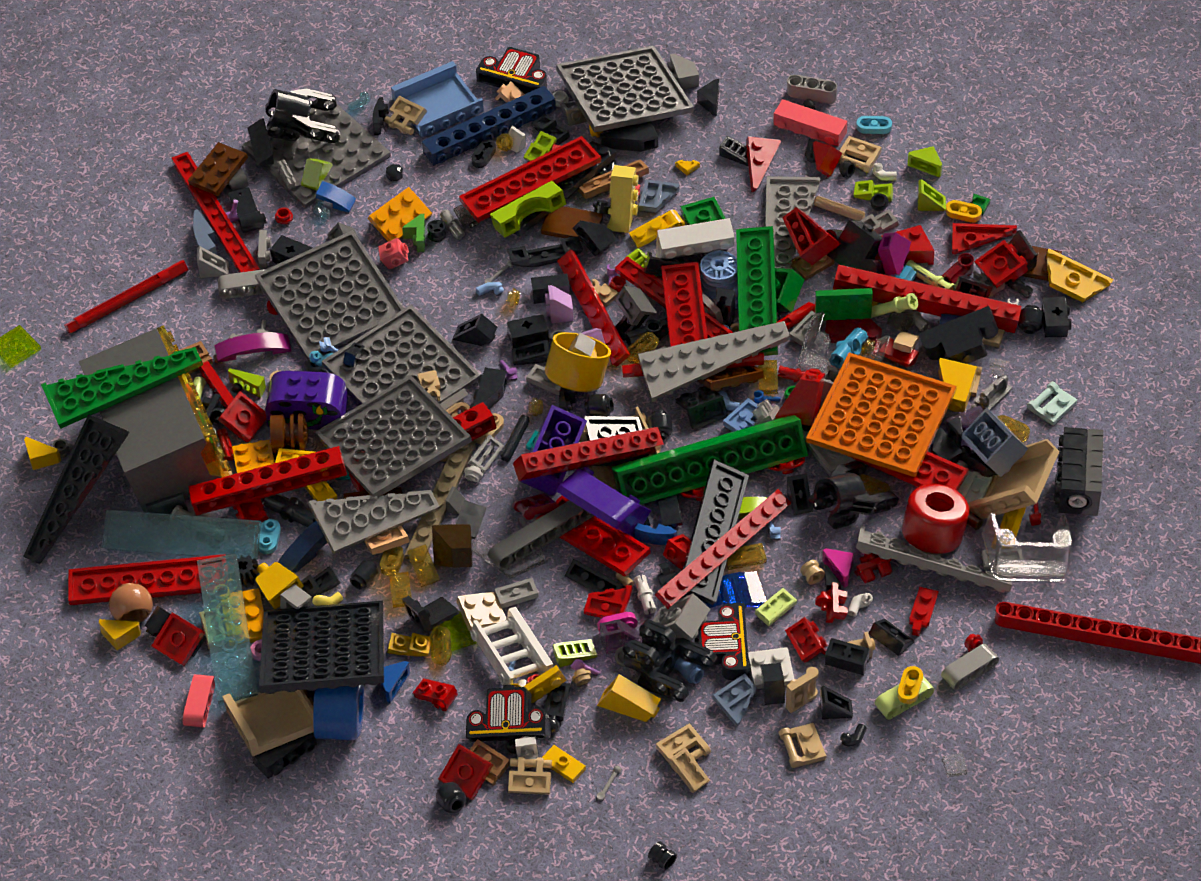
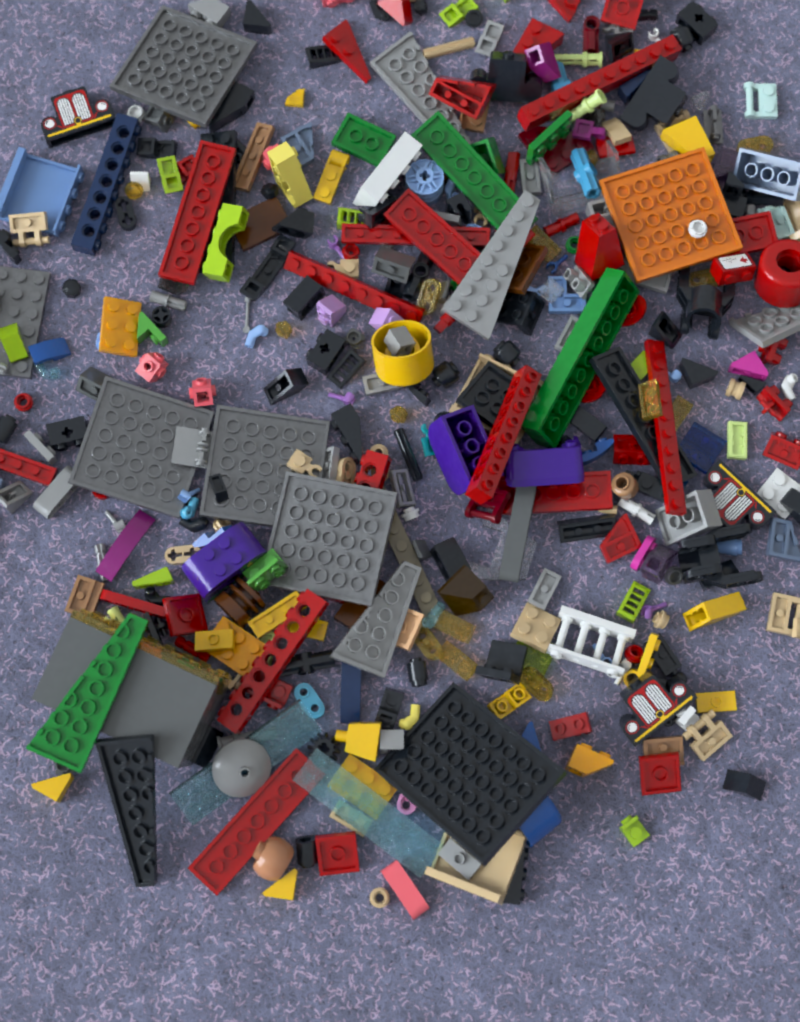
camera: 45 degrees left, 25 degrees up
(176, 688) = (374, 902): none -> tan plate
(185, 538) = (234, 758): none -> light grey dish
(244, 444) = (214, 640): none -> yellow plate
(257, 708) = (459, 859): none -> light grey plate
(324, 420) = (265, 570): none -> bright green bracket
(363, 317) = (191, 447): none -> light grey hinge
(405, 794) = (633, 830): none -> lime bracket
(410, 292) = (202, 392): none -> coral brick
(418, 718) = (585, 761): none -> light orange slope
(419, 541) = (432, 617): none -> clear light blue arm
(451, 797) = (669, 803): black head -> none
(508, 92) = (92, 141): light nougat bracket -> none
(524, 834) = (744, 784): none -> black slope
(601, 795) = (765, 704): light grey hinge -> none
(649, 565) = (625, 485): none -> medium nougat head
(729, 519) = (650, 399): none -> clear yellow plate
(738, 407) = (551, 290): none -> clear plate
(792, 541) = (695, 373): none -> black slope
(883, 323) = (585, 130): none -> magenta plate
(889, 433) = (697, 228): none -> white plate
(894, 485) = (732, 268): none -> red brick

